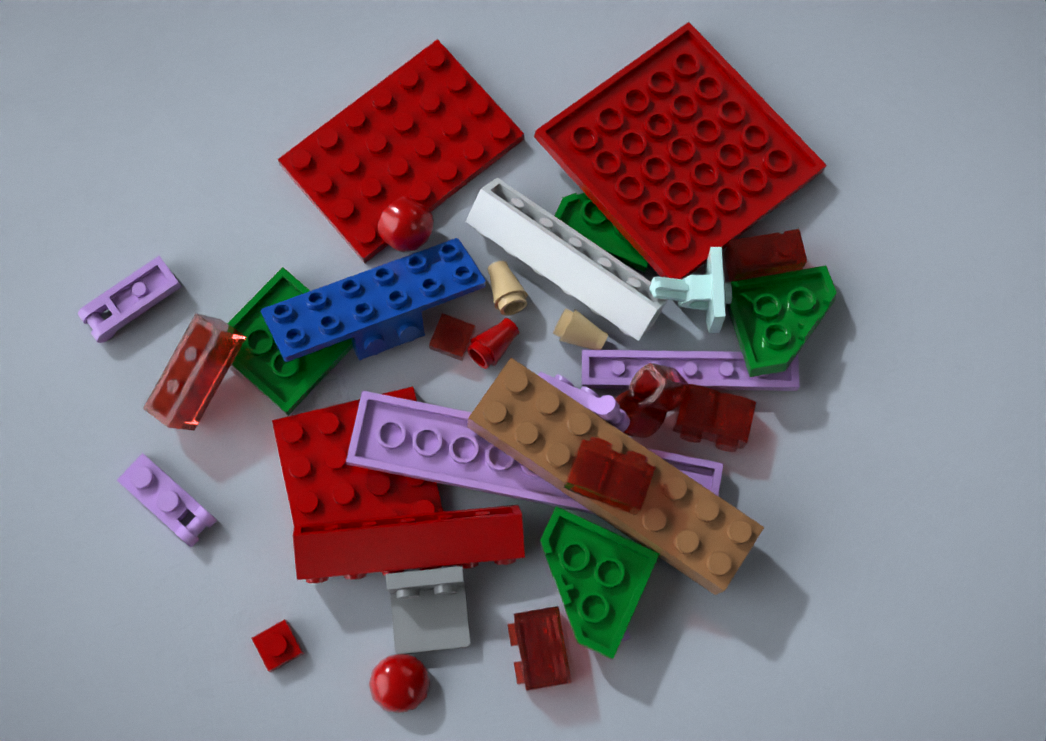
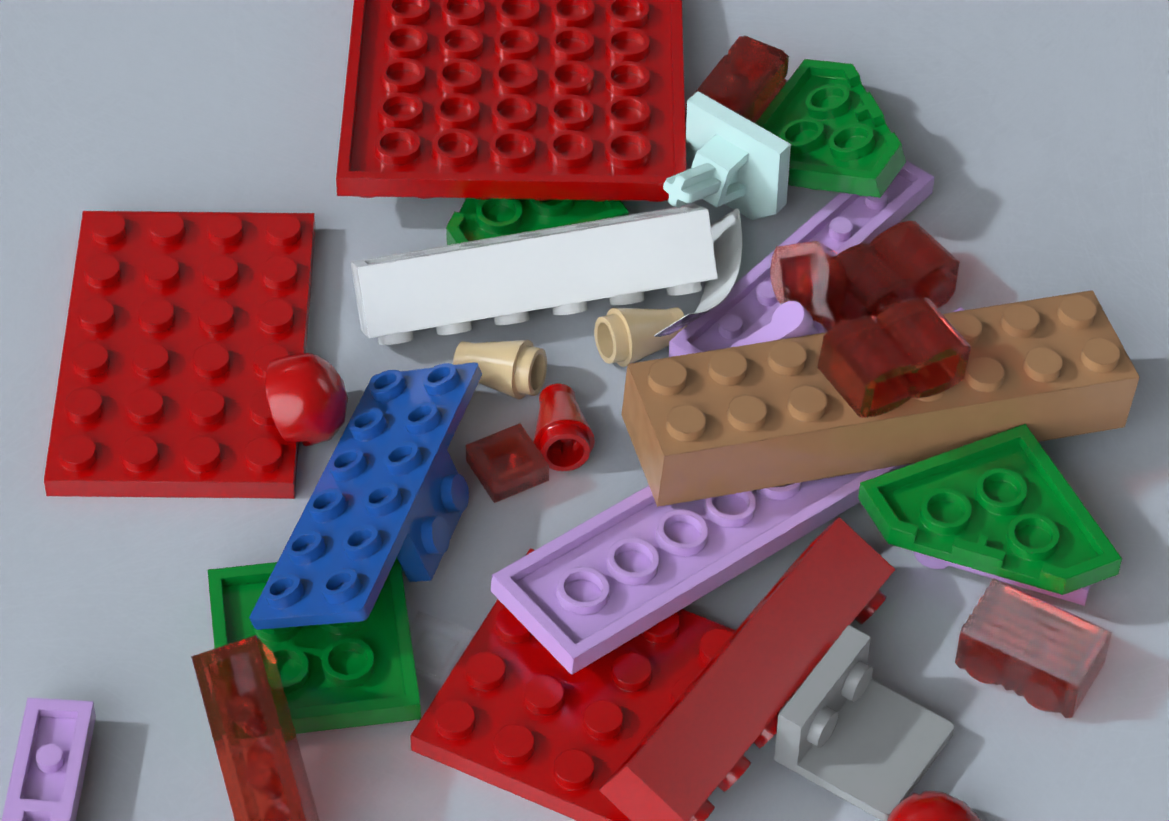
camera: 50 degrees left, 25 degrees down
(655, 335) = (728, 255): none -> white sticker

